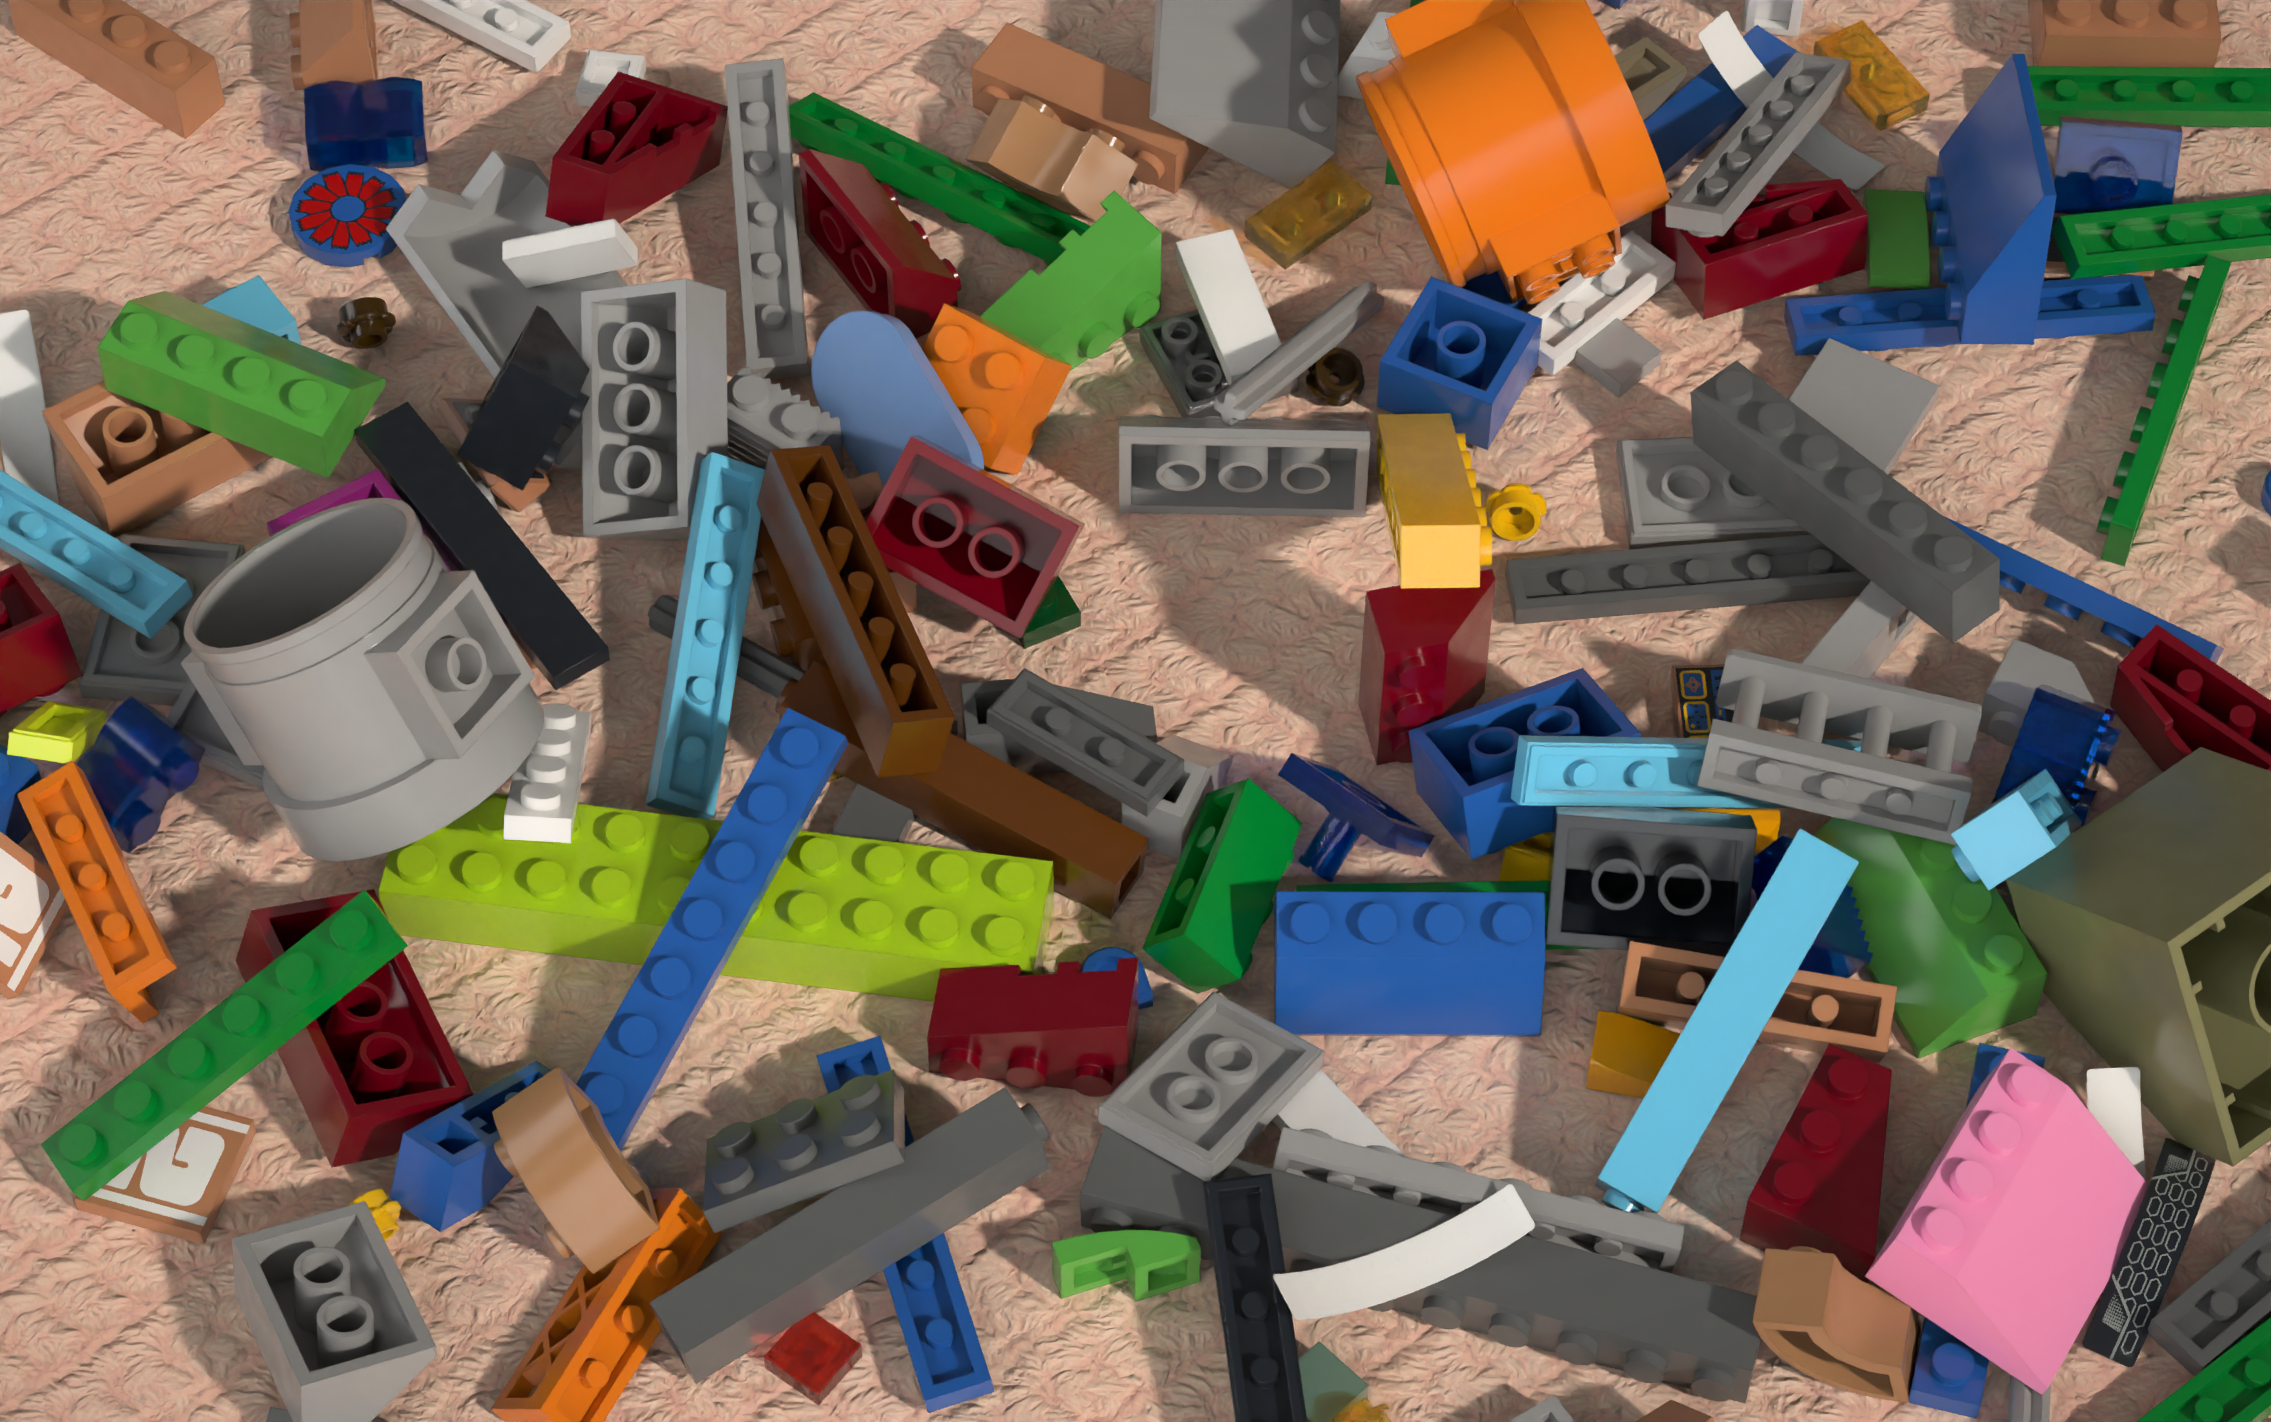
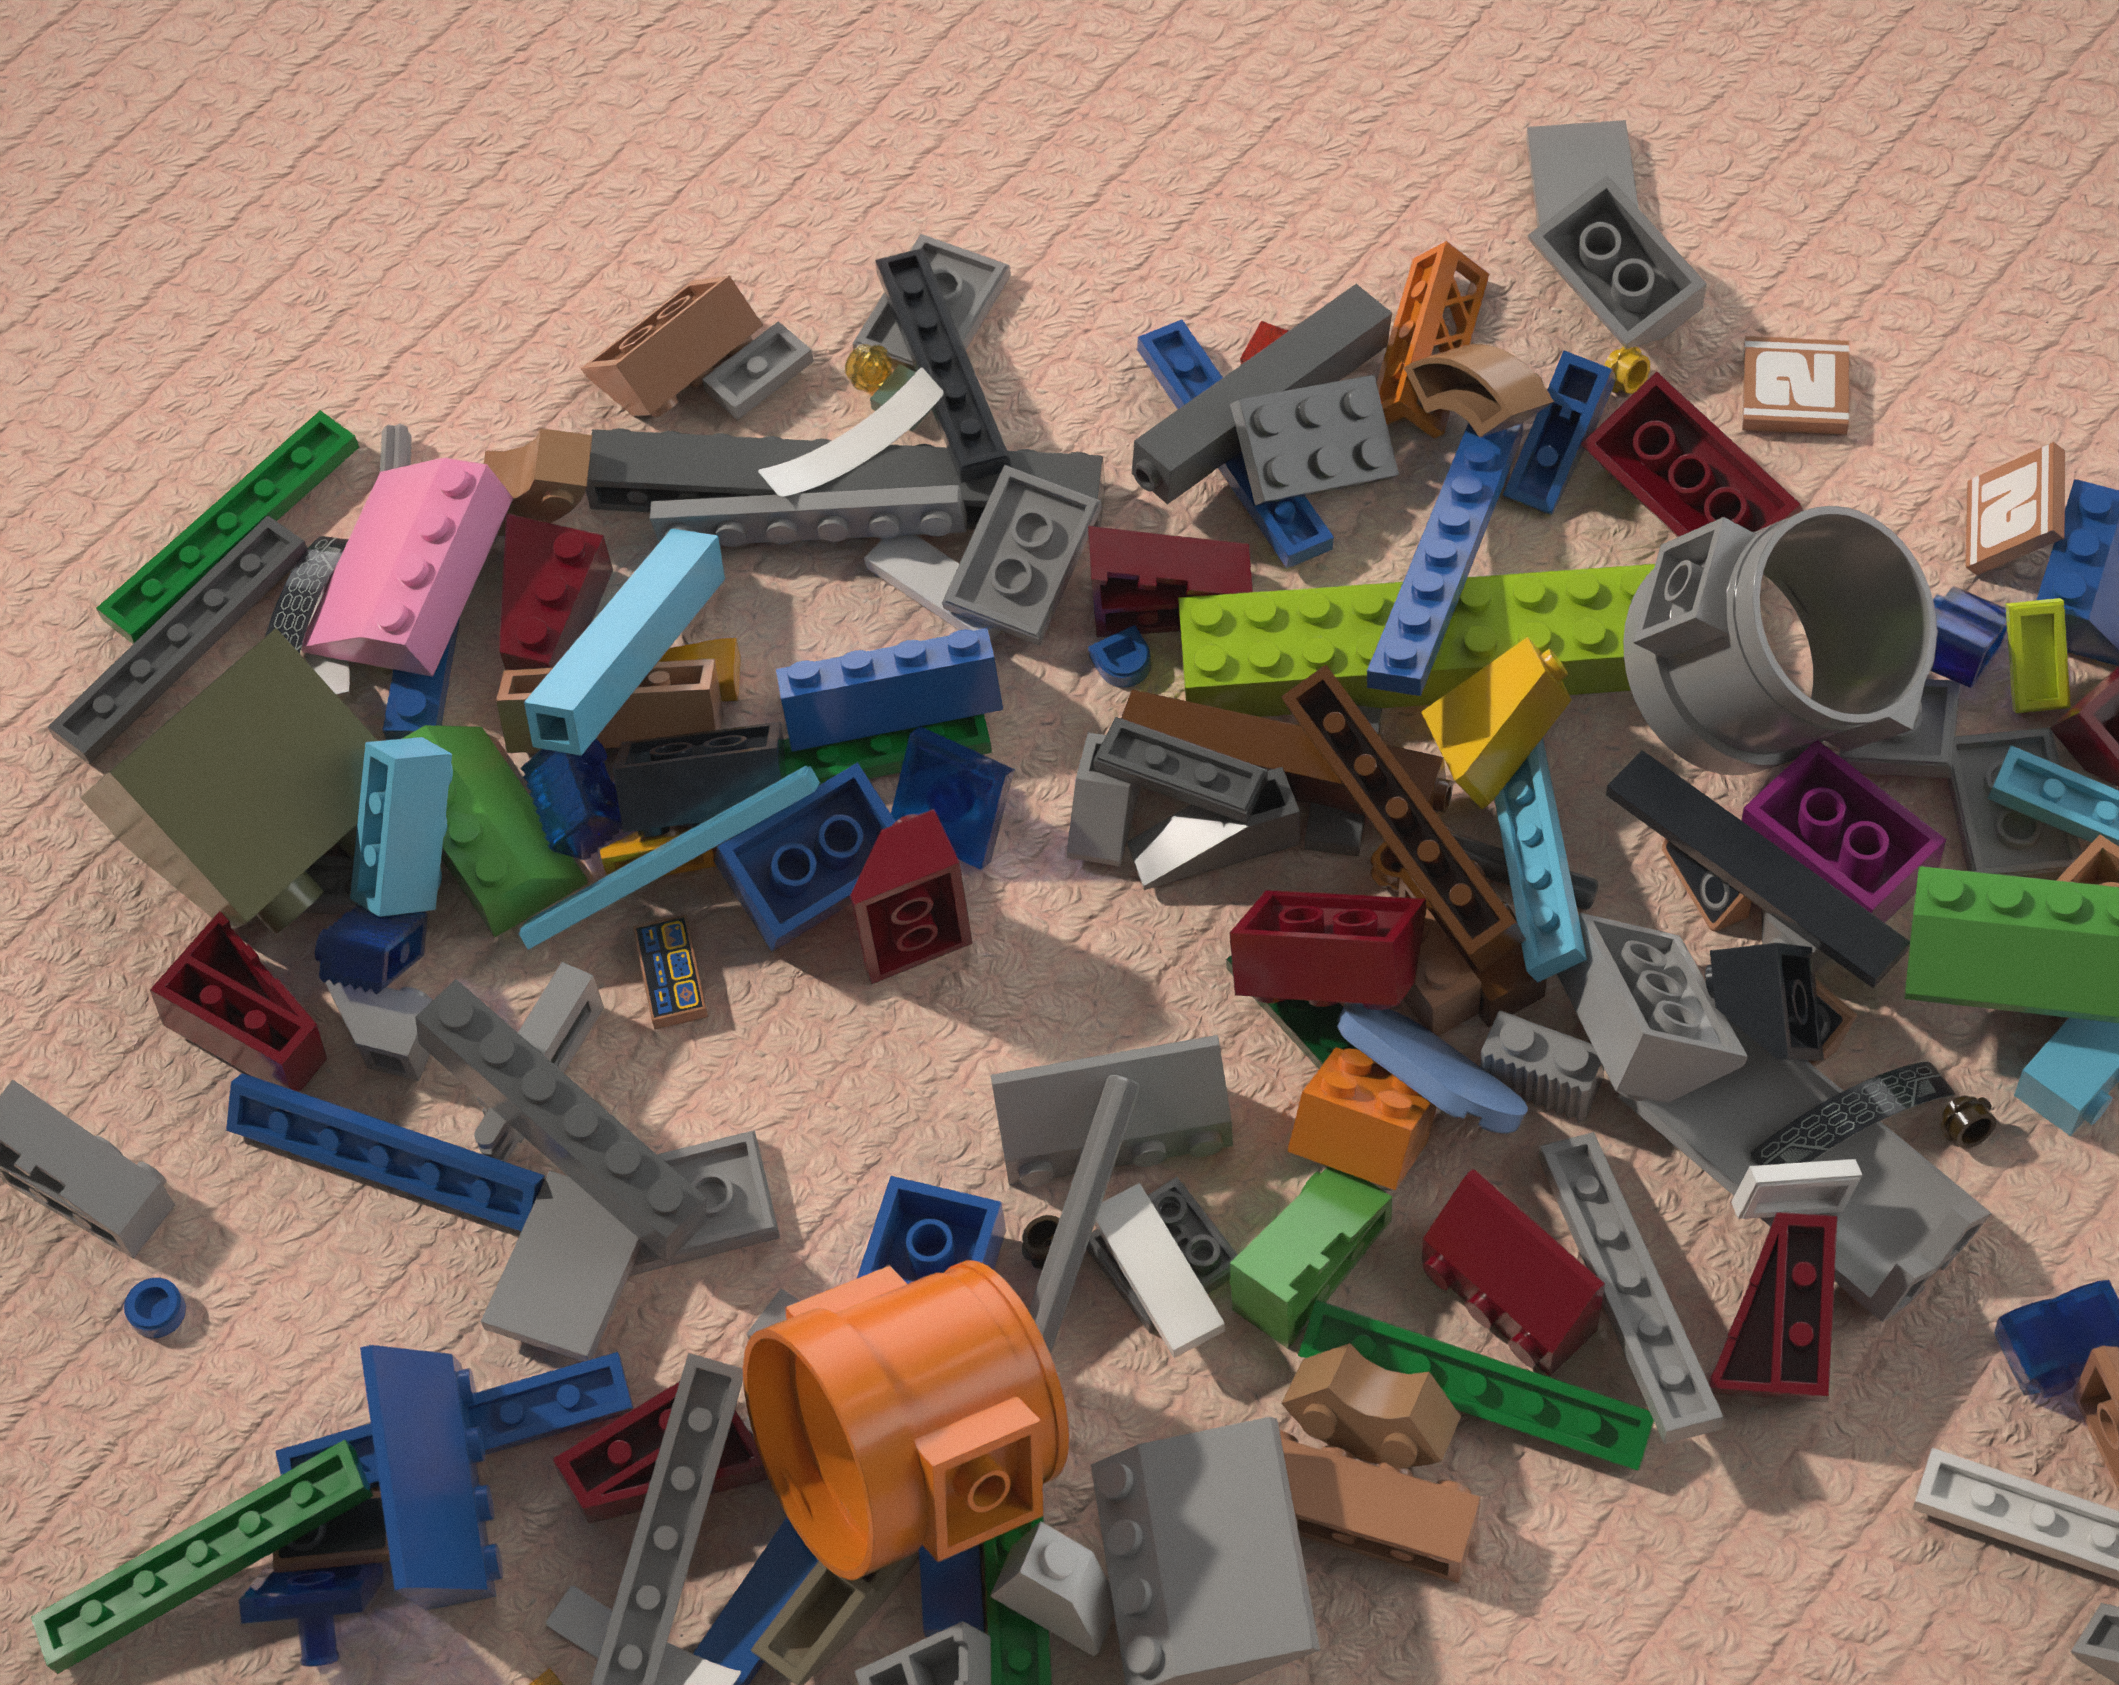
camera: 175 degrees right, 5 degrees up
(98, 887) = (1939, 531): orange fence -> none
(223, 1045) = (1772, 412): green plate -> none
(345, 214) = (2039, 1244): tile -> none
(467, 334) = (1851, 1113): none -> black sticker
(549, 781) = (1600, 616): white plate -> none
(601, 68) = (1851, 1464): white tile -> none
(695, 757) = (1498, 718): none -> yellow slope
(1146, 1258) = (1088, 433): bright green slope -> none
(1223, 886) = (1049, 717): green brick -> none
(1308, 215) = (1112, 1418): clear yellow plate -> none
(1431, 502) = (928, 1018): yellow brick -> none
(1515, 523) = (861, 1135): yellow plate -> none
(1678, 578) = (730, 1088): dark grey plate -> none
(1833, 779) = (524, 837): light grey fence -> none
(1897, 239) = (529, 1515): bright green slope -> none
(2156, 425) = (276, 1334): green plate -> none

